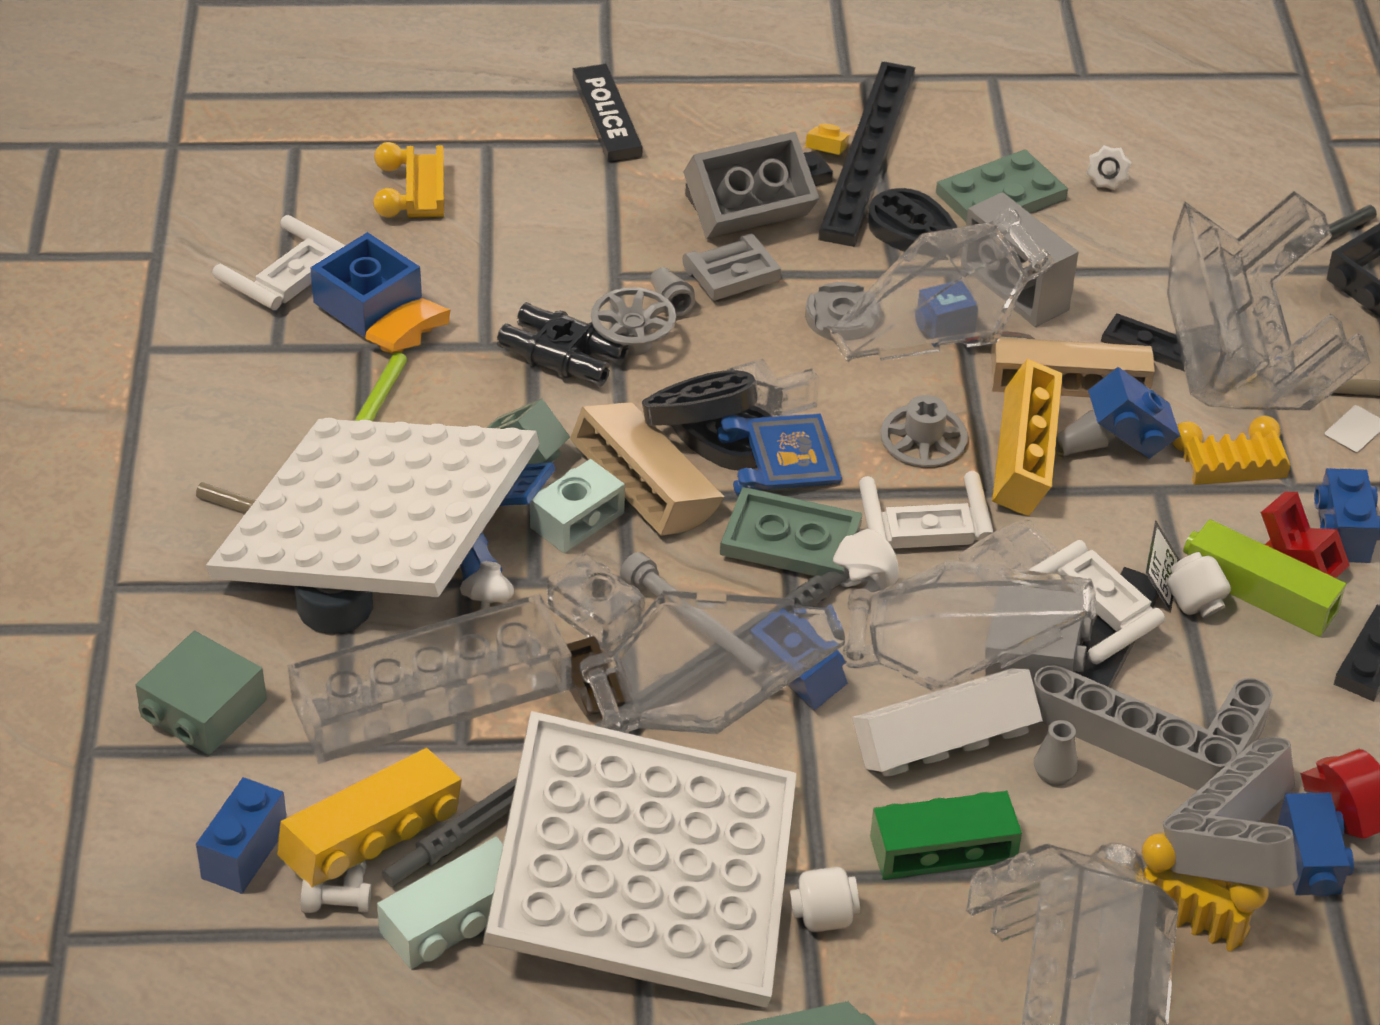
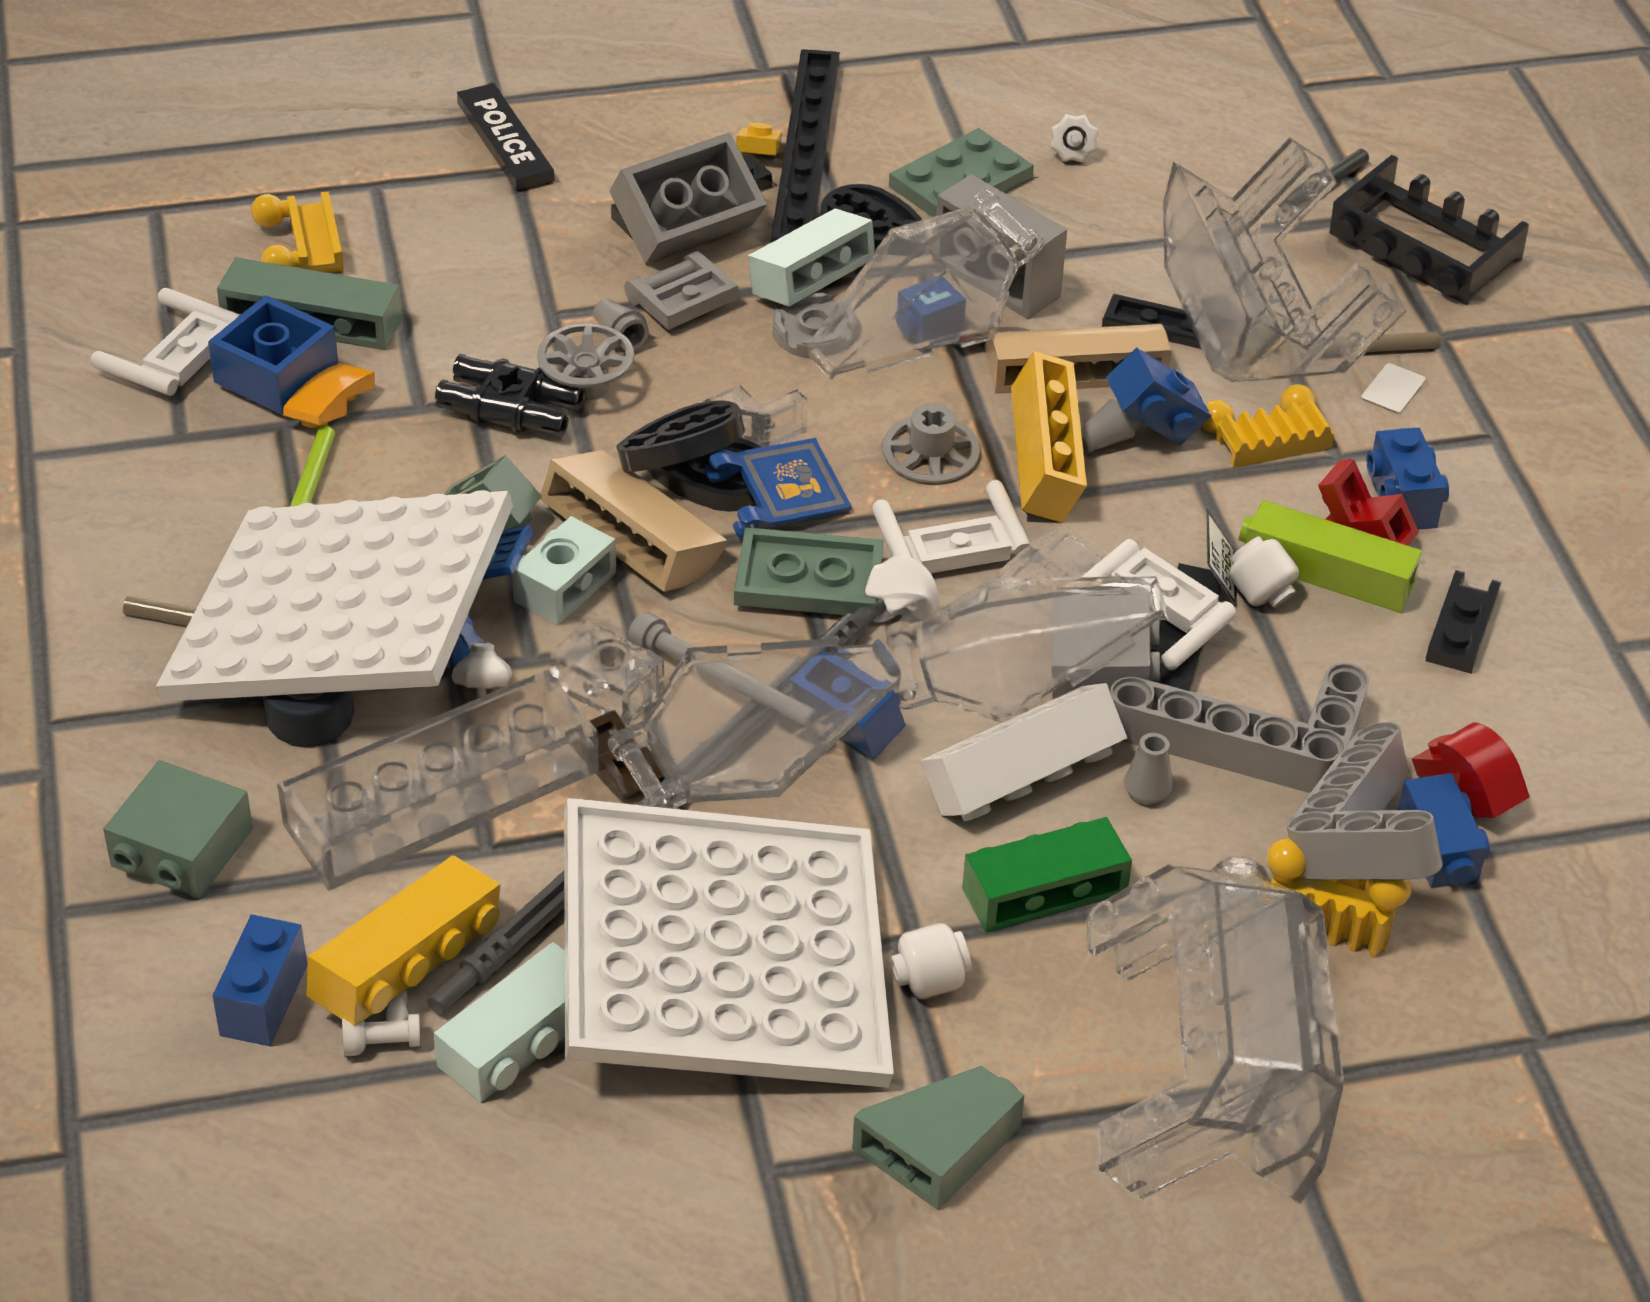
camera: 10 degrees left, 0 degrees up
(441, 250) = (358, 308): none -> sand green brick
(850, 250) = (811, 257): none -> light aqua brick

